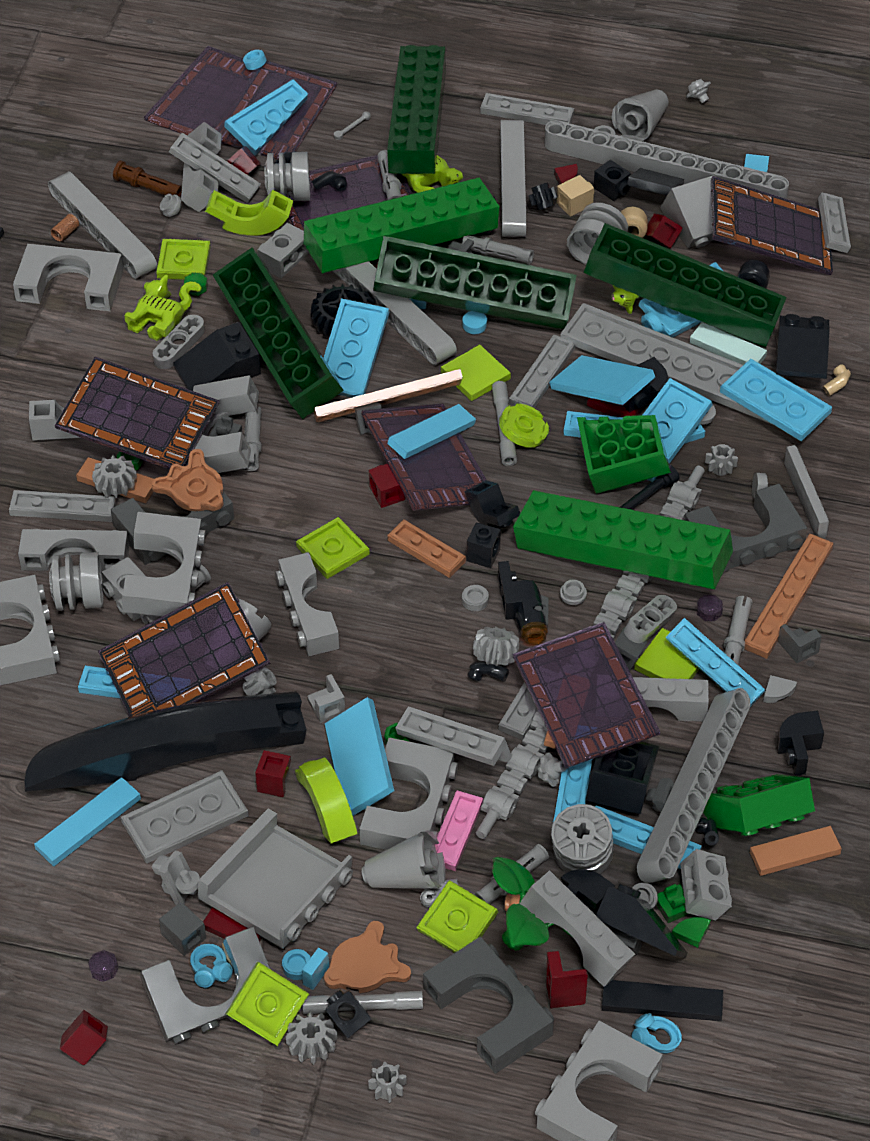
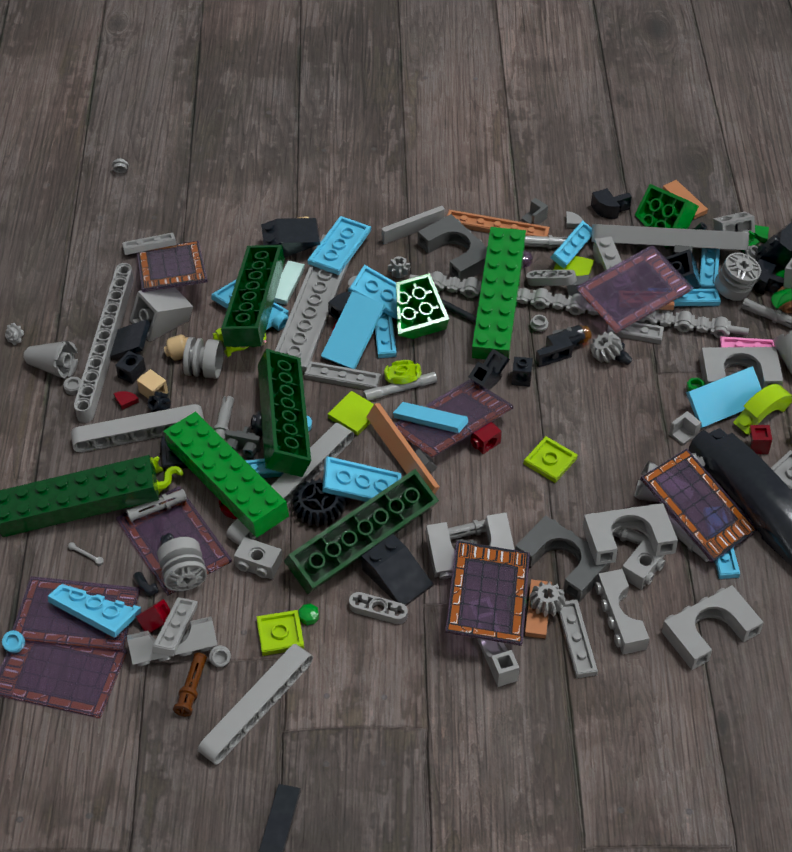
camera: 105 degrees left, 0 degrees up
(44, 262) = (320, 734): light grey arch -> none
(65, 229) = (269, 734): nougat piece -> none
(76, 581) = (659, 590): light grey wheel -> none
(160, 310) = (353, 622): lime animal -> none
(192, 486) = (542, 538): nougat tile -> none
(250, 219) = (224, 584): lime arch -> none
(315, 627) = (592, 467): light grey arch -> none
(426, 548) = (530, 407): nougat tile -> none
(453, 736) = (695, 348): light grey fence -> none
(475, 598) = (562, 373): light grey tile -> none
(525, 109) = (49, 439): light grey tile -> none
(550, 769) = (685, 305): light grey plant -> none
(663, 230) = (180, 326): dark red panel -> none
(755, 272) = (219, 274): black head -> none
(757, 162) = (93, 293): medium azure tile -> none
(759, 482) = (414, 247): light grey tile -> none

